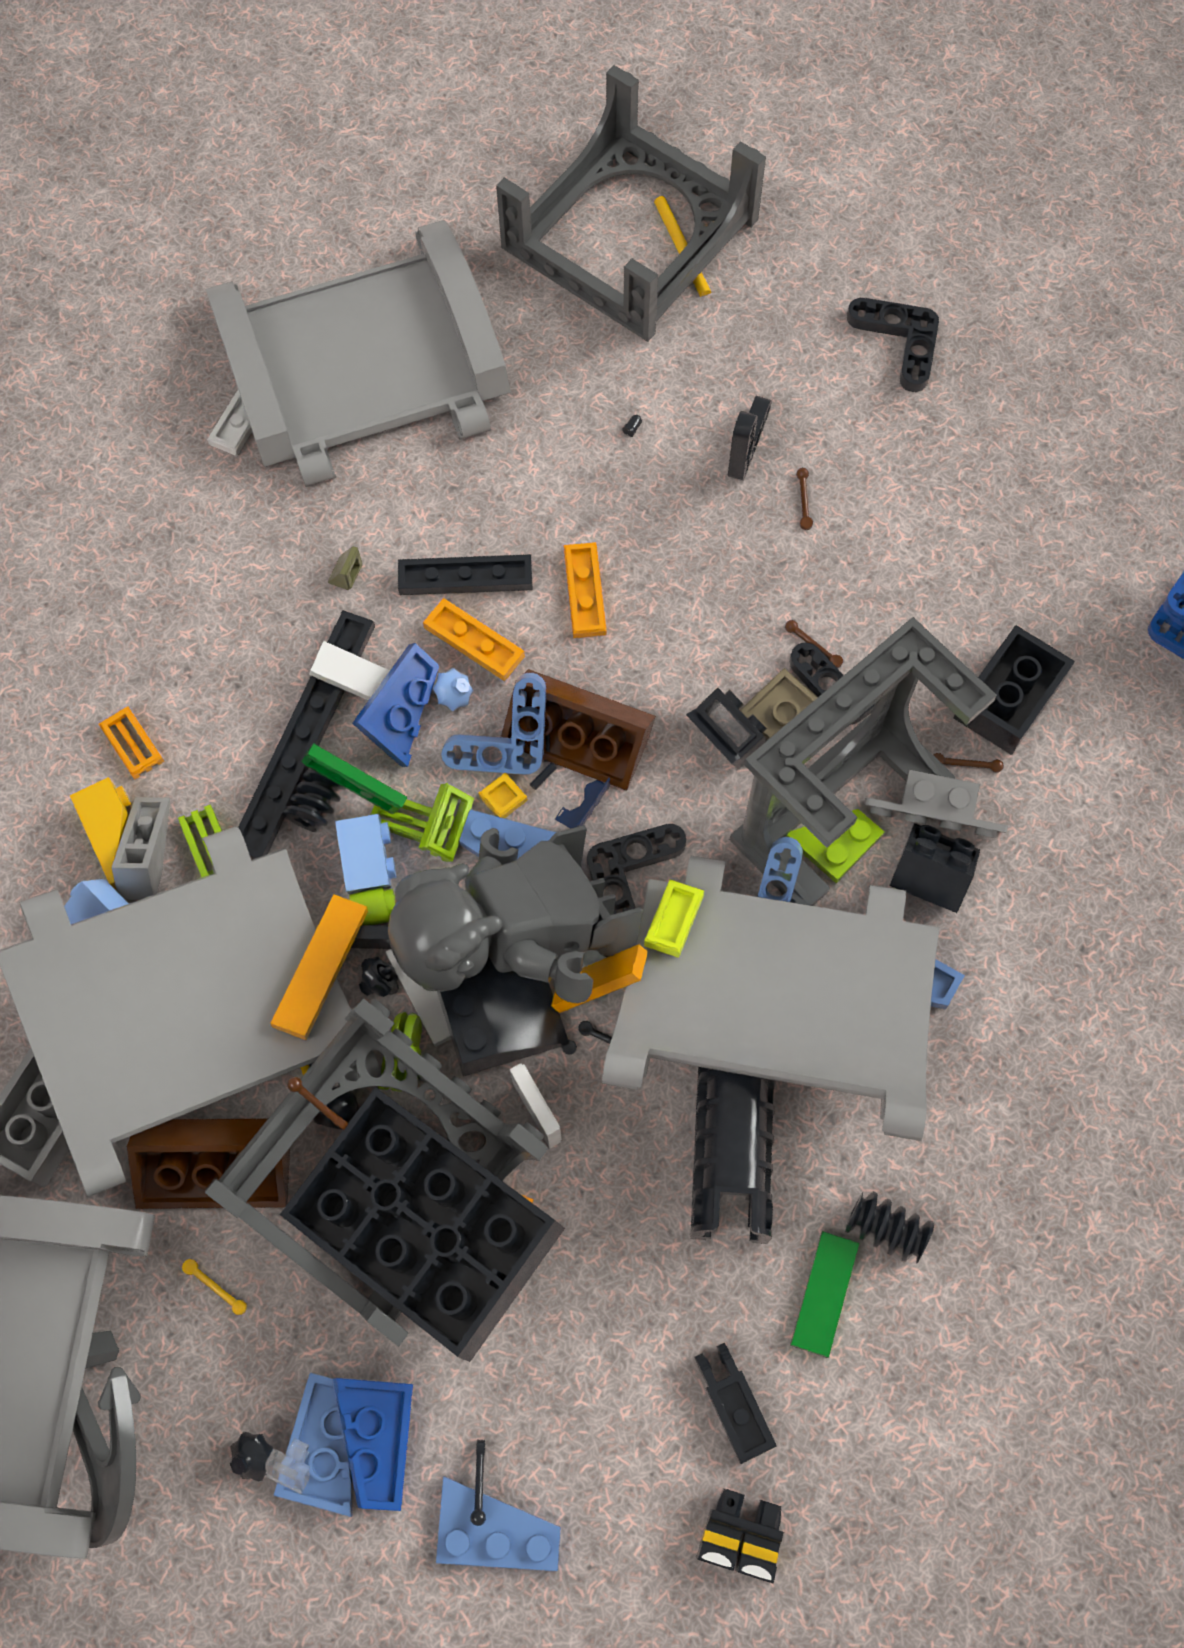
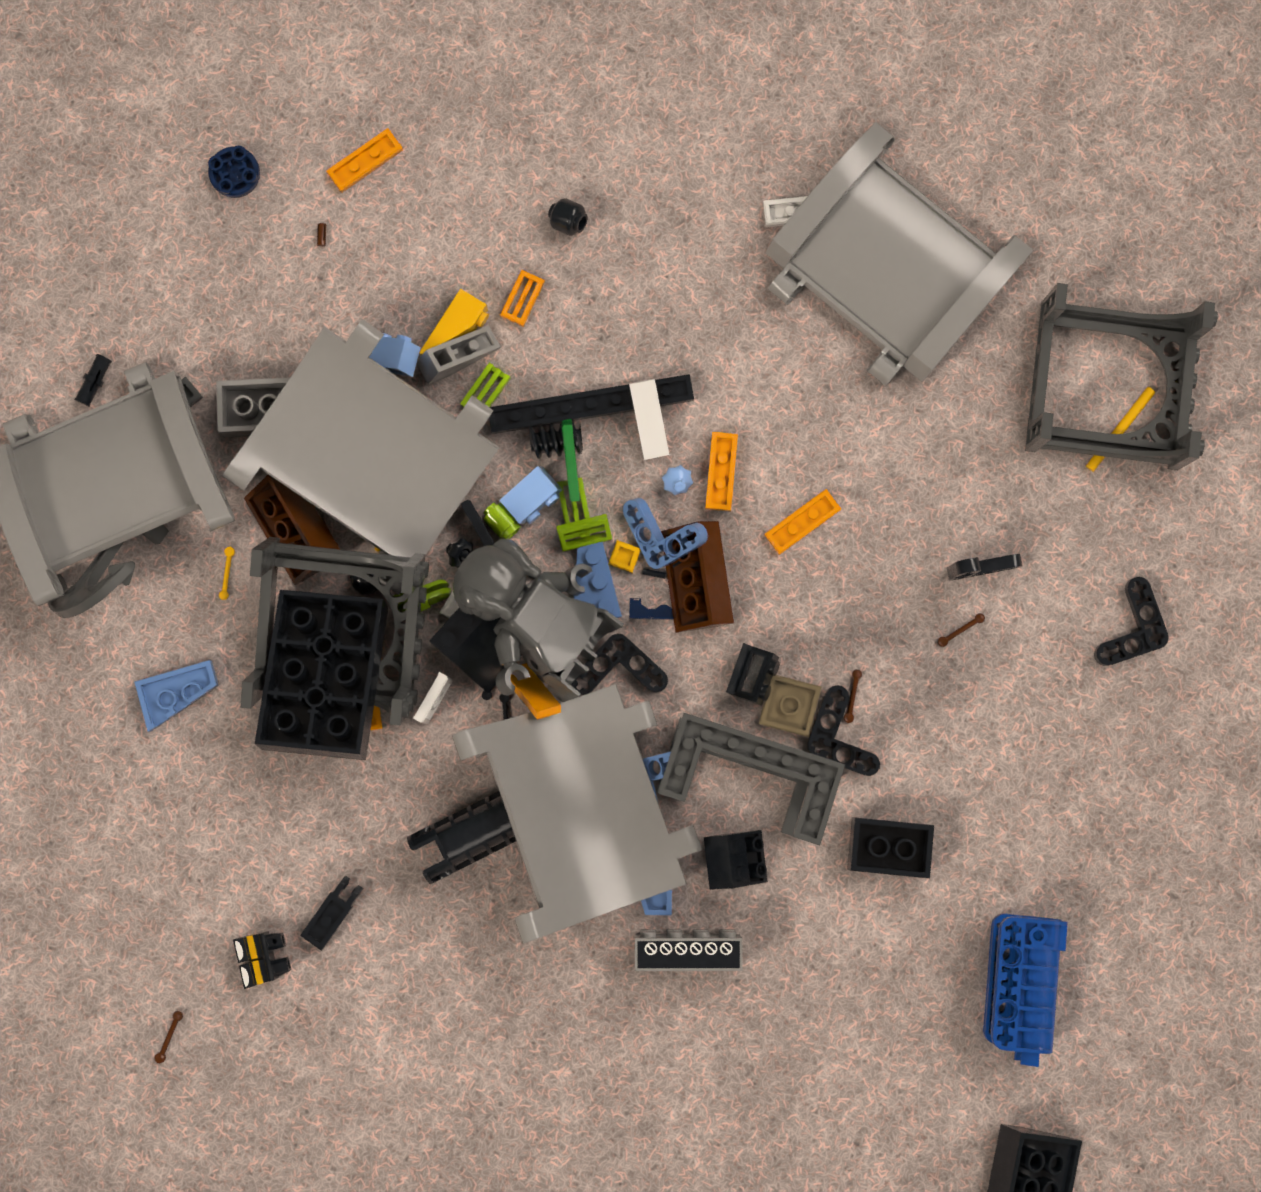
camera: 60 degrees right, 15 degrees up
(76, 640) = (567, 217): none -> black head
(250, 1456) = (147, 656): black piece -> none
(290, 1468) = (150, 682): clear tile -> none
(295, 1085) = (350, 554): reddish brown hinge -> none
(319, 967) = (440, 516): light orange tile -> none
(346, 569) = (722, 355): olive slope -> none
(376, 1438) = (196, 720): blue wing -> none
(397, 704) = (643, 452): blue wing -> none
(465, 574) = (764, 437): black plate -> none
(478, 1517) = (187, 803): black hinge -> none
(505, 1540) = (185, 815): medium blue wing -> none
(632, 425) = (948, 480): black piece -> none
(674, 918) = (595, 715): neon yellow tile -> none
(824, 1294) = (425, 932): green tile -> none
(843, 852) = (718, 787): lime wing -> none
(890, 1226) = (485, 950): black piece -> none
(939, 799) = (777, 832): light grey bracket -> none
(996, 765) = (833, 863): reddish brown hinge -> none
(1020, 975) = (688, 951): none -> brick

